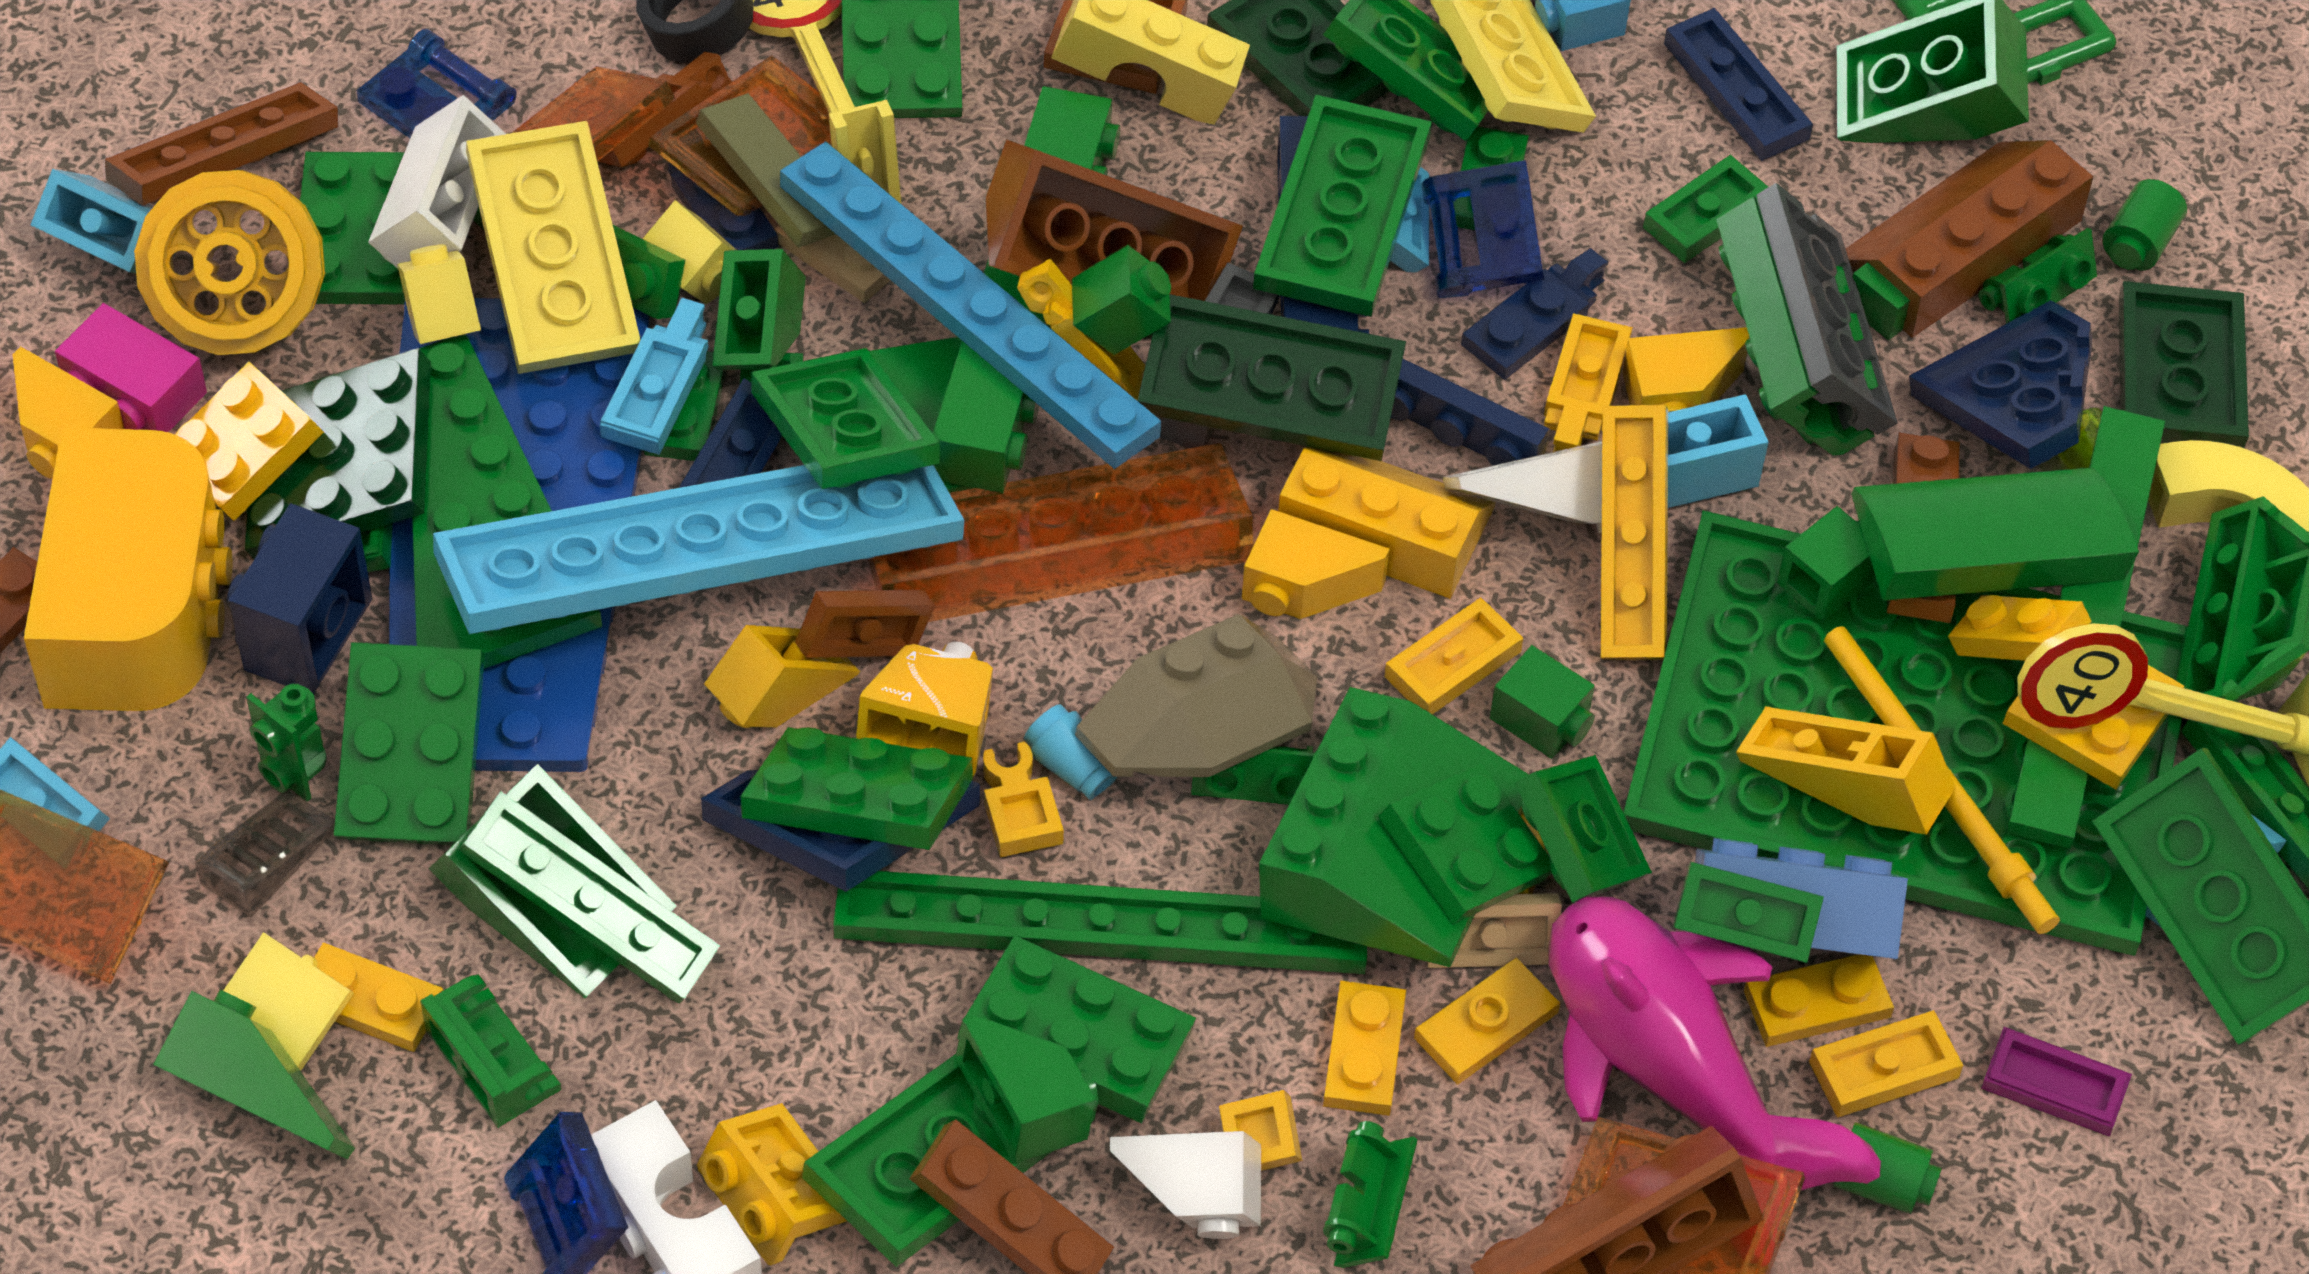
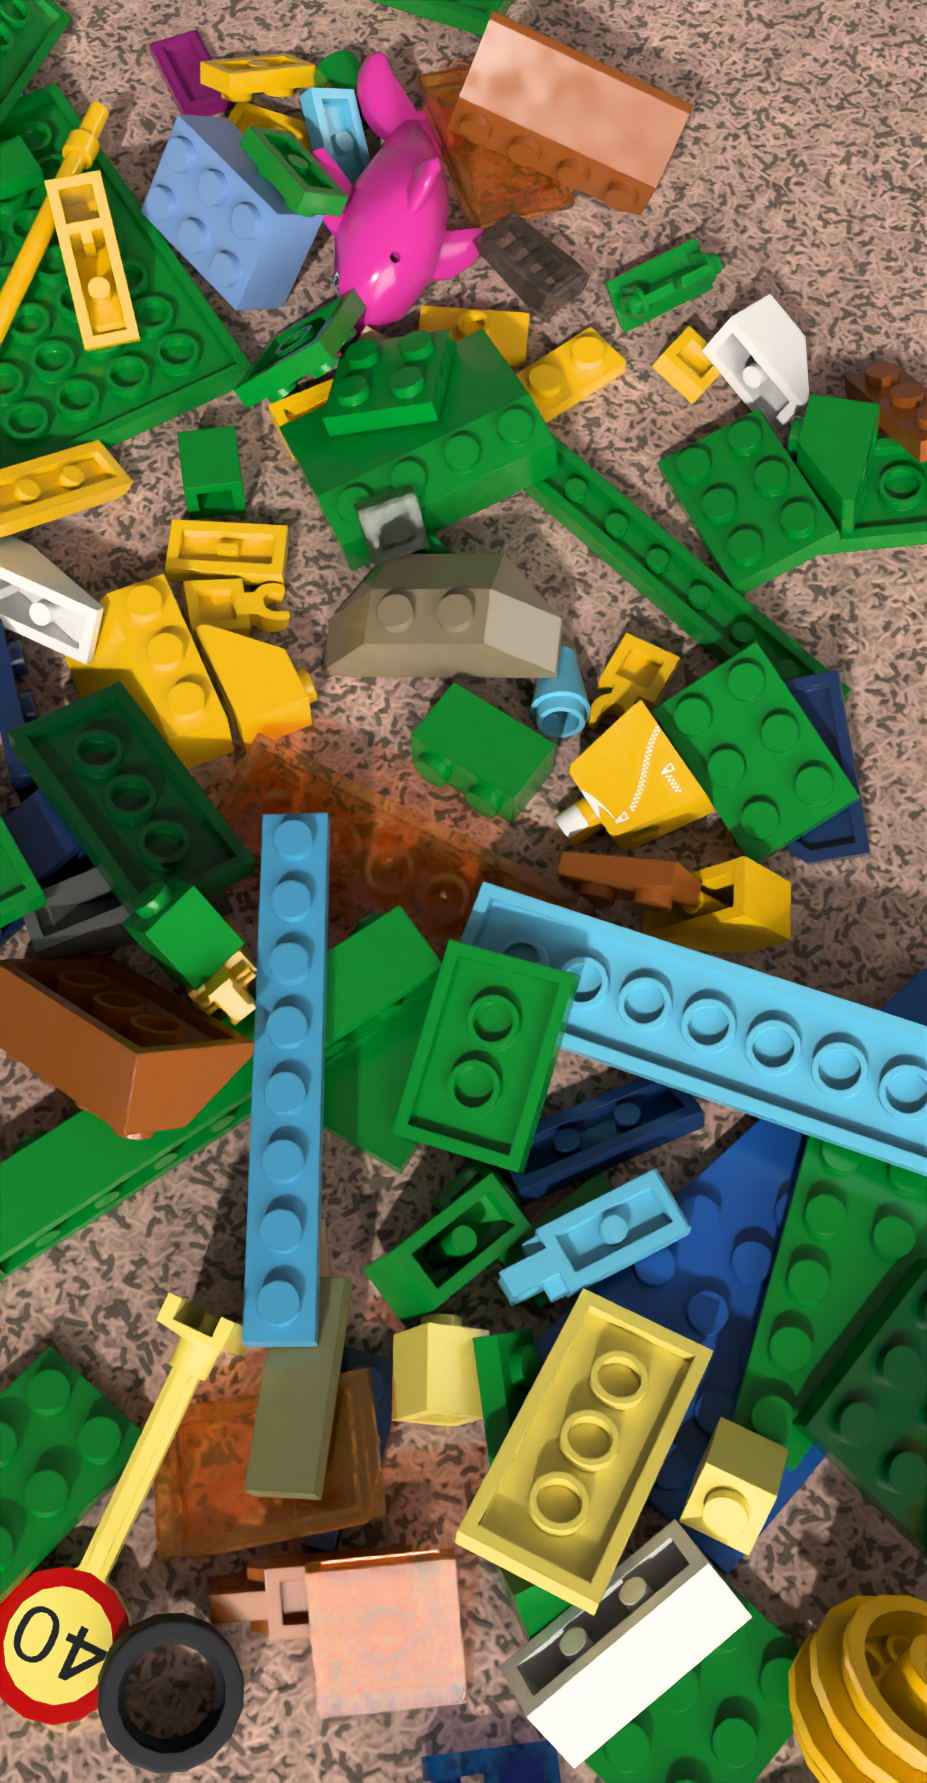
camera: 135 degrees left, 10 degrees up
(1073, 649) = (481, 754): none -> green brick
(1321, 716) = (391, 525): none -> clear smoke tile
(1399, 609) = (229, 608): none -> yellow plate
(1488, 1095) = (530, 287): none -> clear smoke slope
(1811, 1075) = (336, 125): none -> medium azure plate
(1977, 1100) = (272, 74): none -> yellow plate

